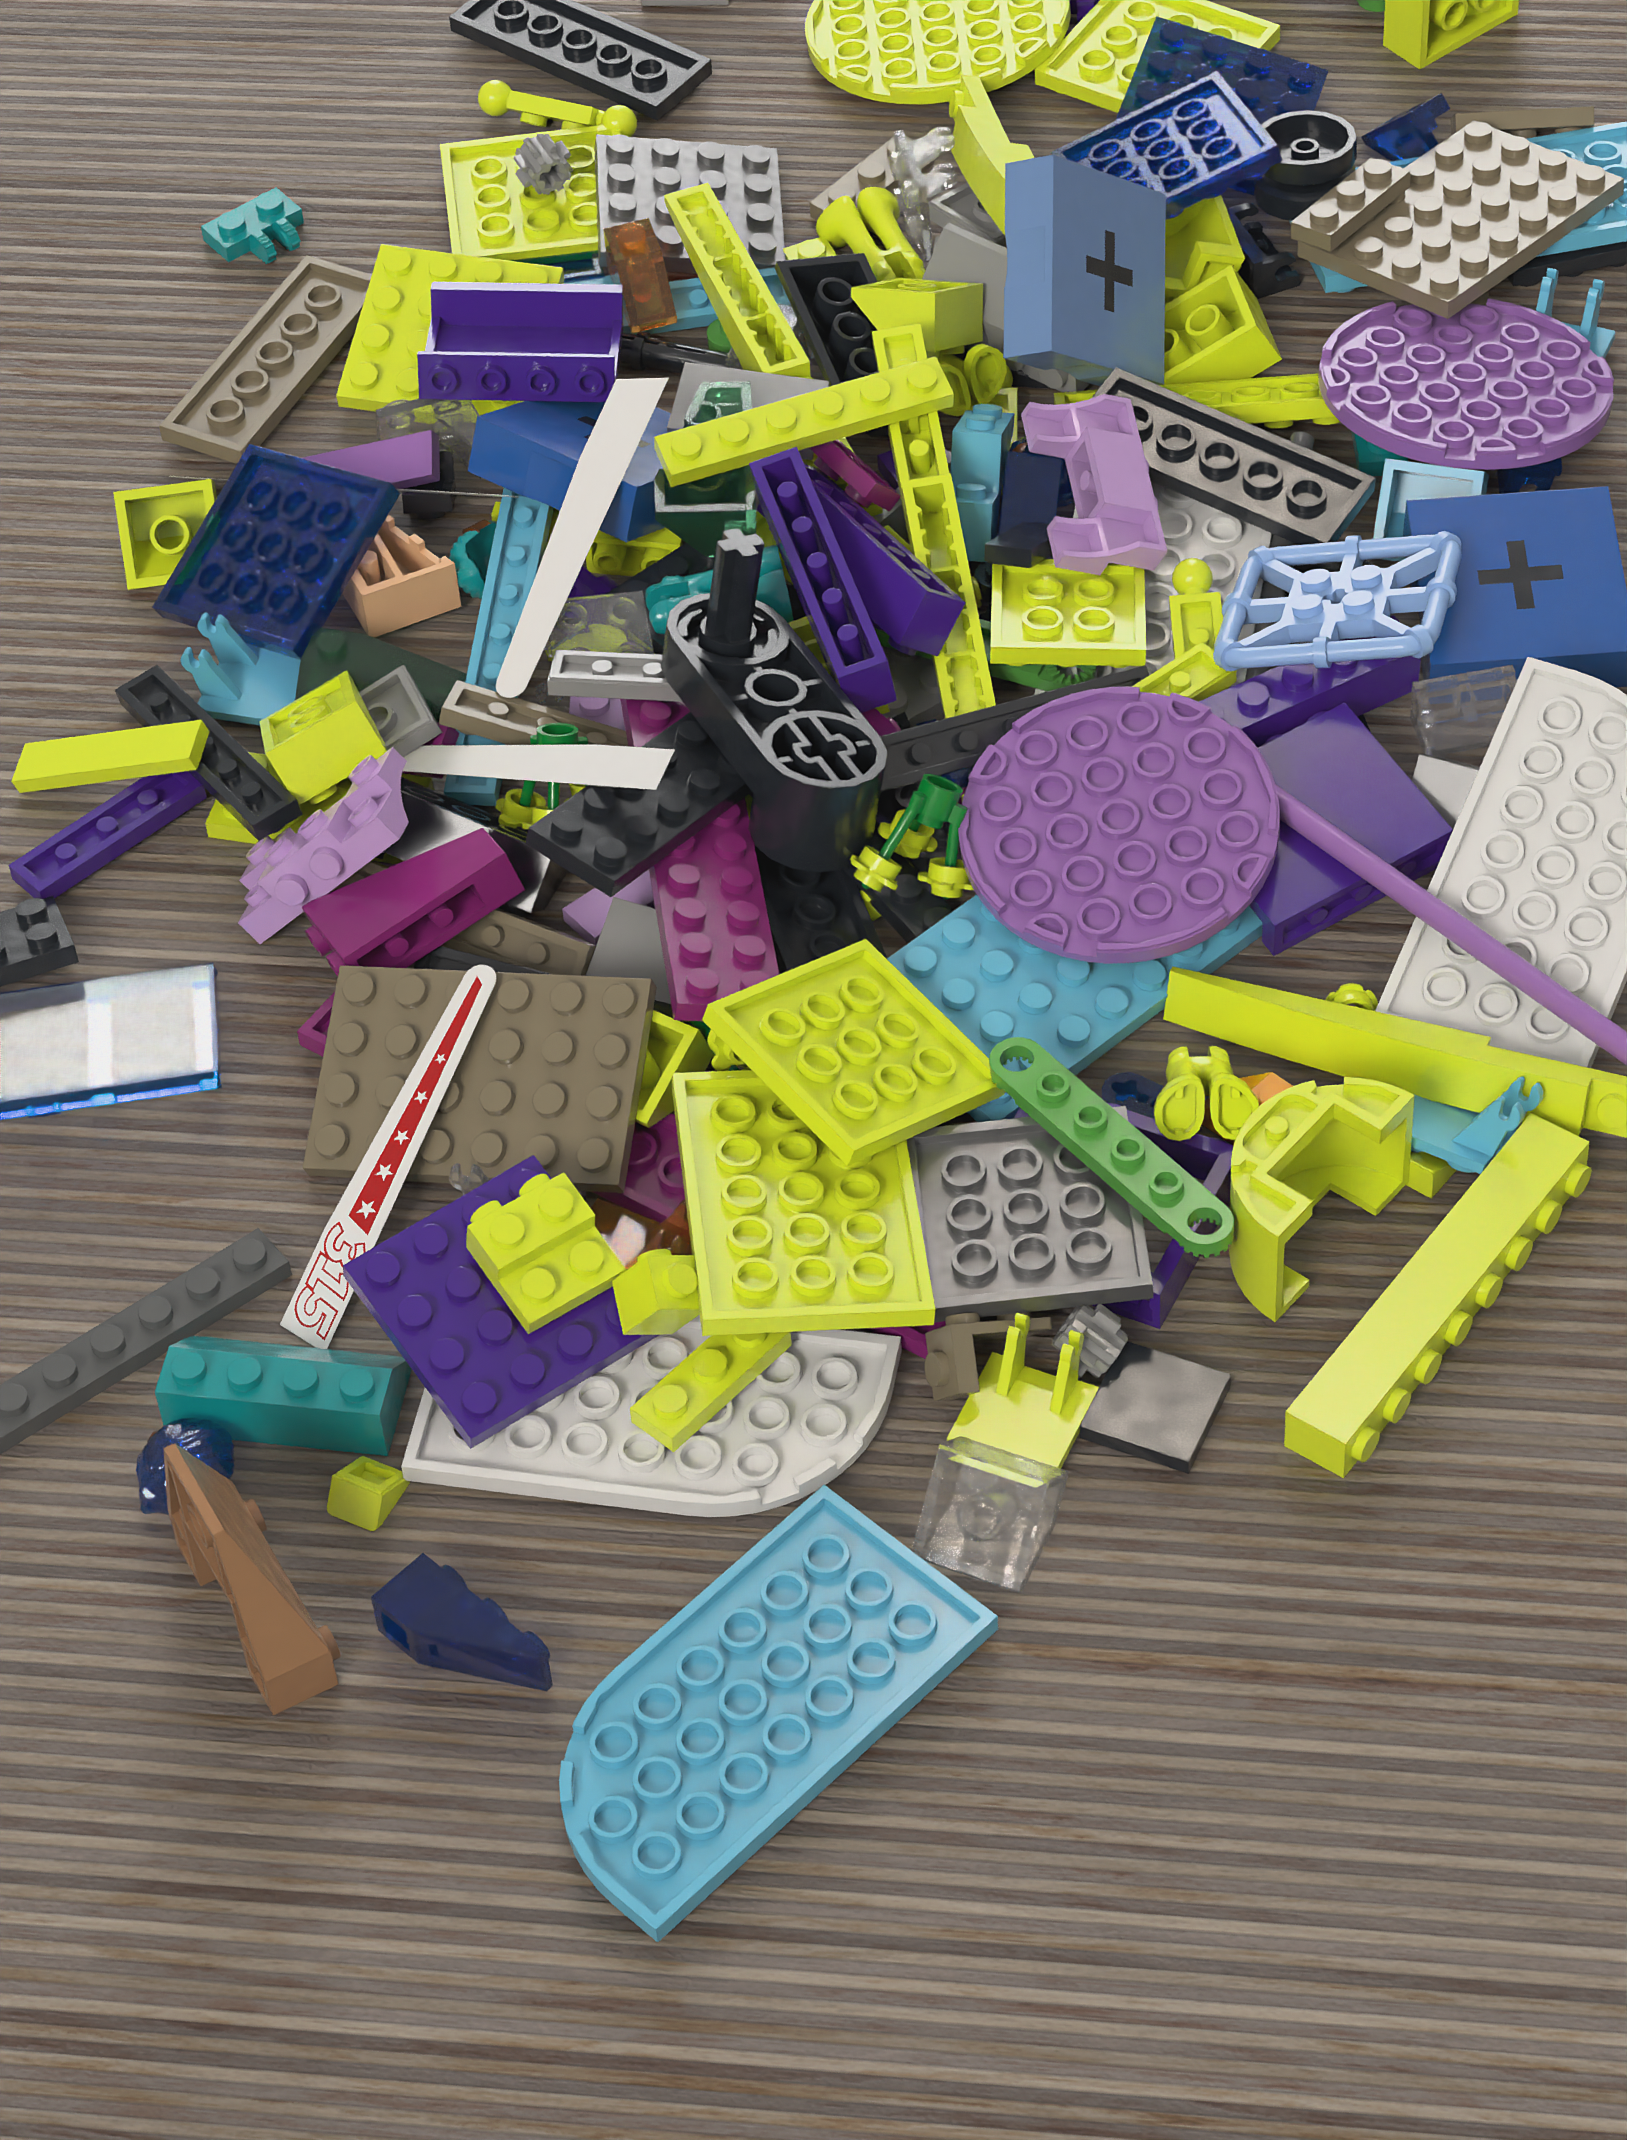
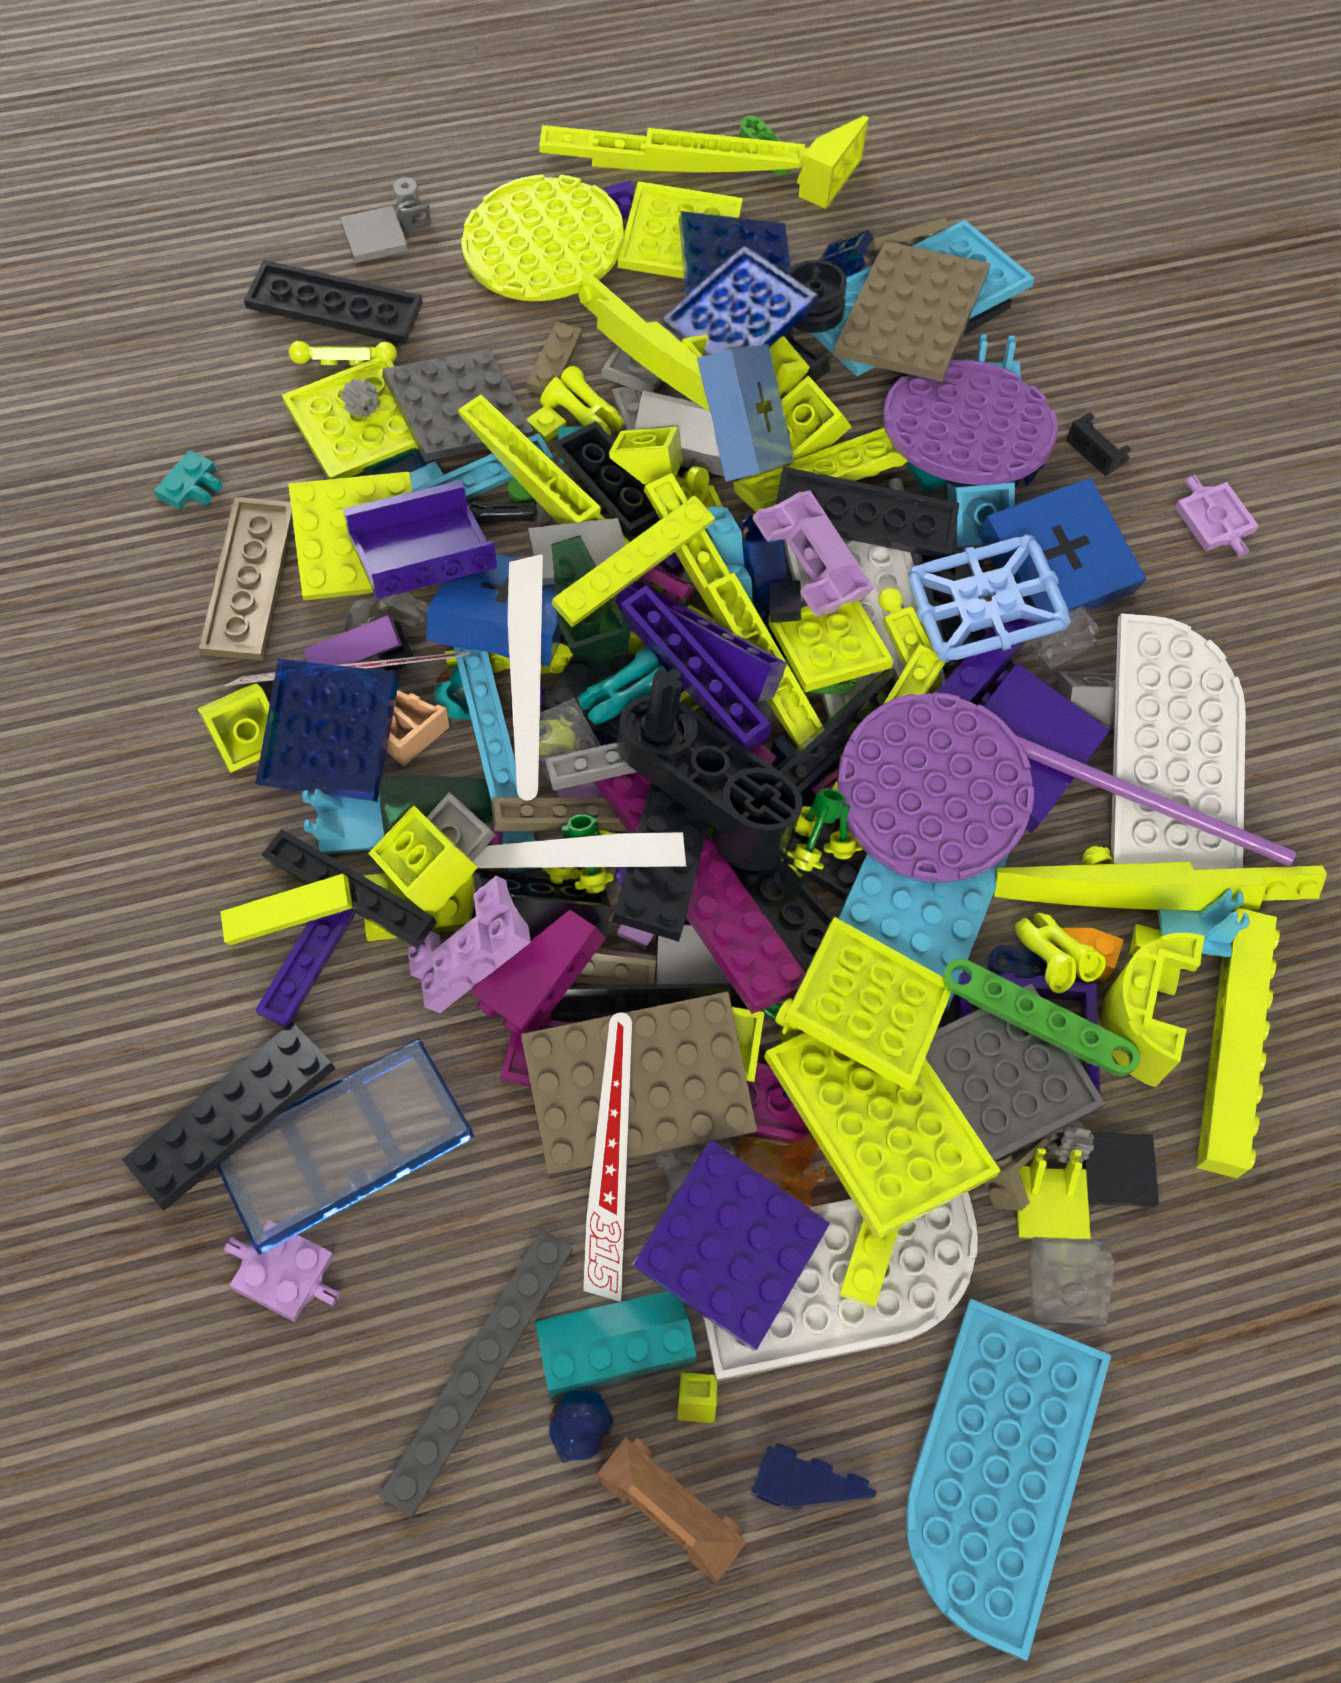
camera: 30 degrees left, 15 degrees up
(542, 1250) = (753, 1211): neon yellow plate -> none
(638, 265) = (457, 462): clear orange slope -> none
(657, 1293) = (832, 1214): neon yellow brick -> none
(916, 189) = (591, 361): clear plate -> none
(1350, 204) = (856, 318): dark tan plate -> none

